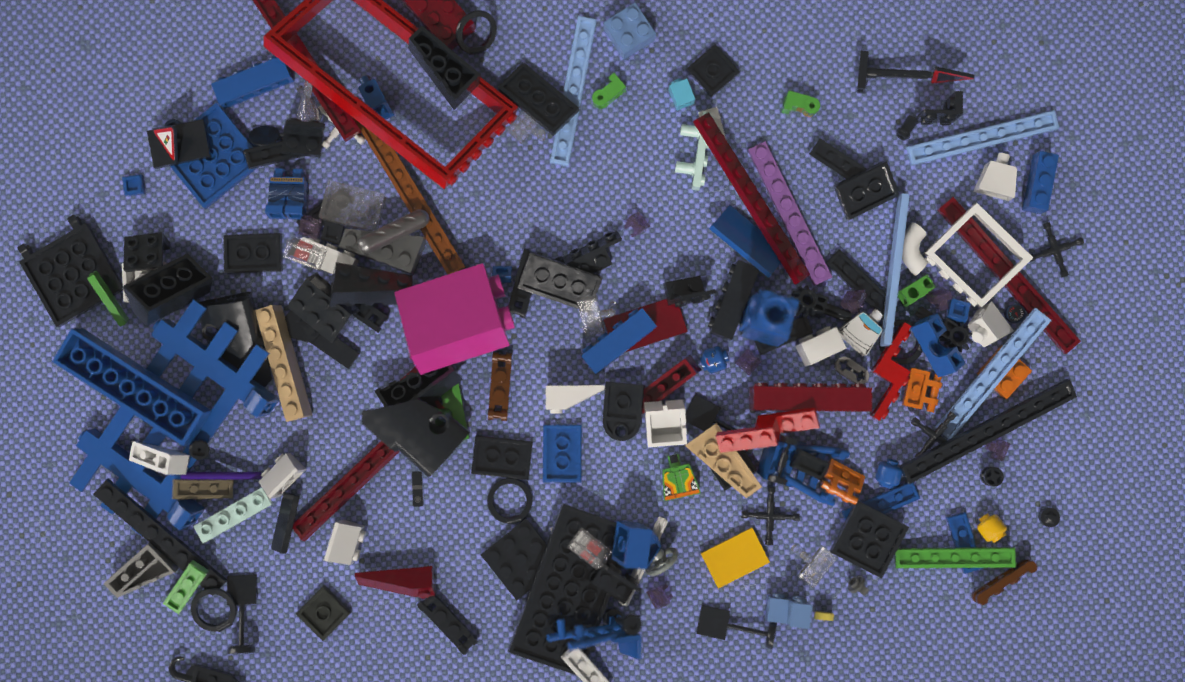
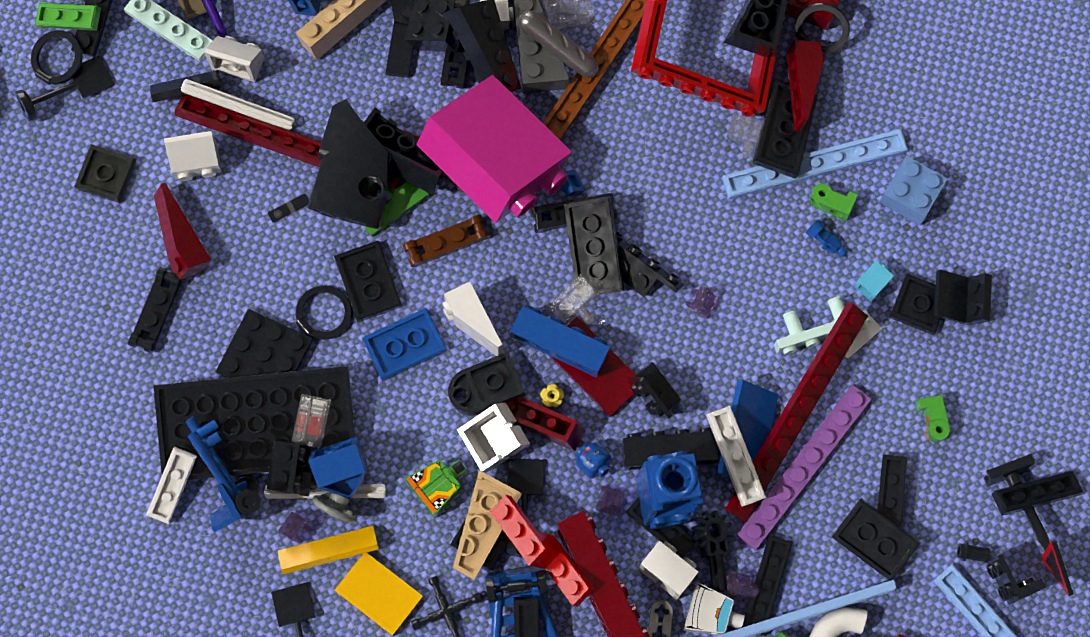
camera: 55 degrees right, 10 degrees down
(320, 491) = (237, 104): none -> white axle
(501, 61) = (804, 69): none -> dark red slope
(634, 573) = (307, 482): none -> black plate
(635, 110) = (828, 240): none -> blue piece
(652, 360) = (552, 402): none -> light yellow plate
(687, 579) = (328, 550): none -> yellow tile
(726, 37) = (963, 298): none -> black bracket
(765, 258) = (736, 456): none -> white tile
(890, 61) = (1037, 493): none -> black tile

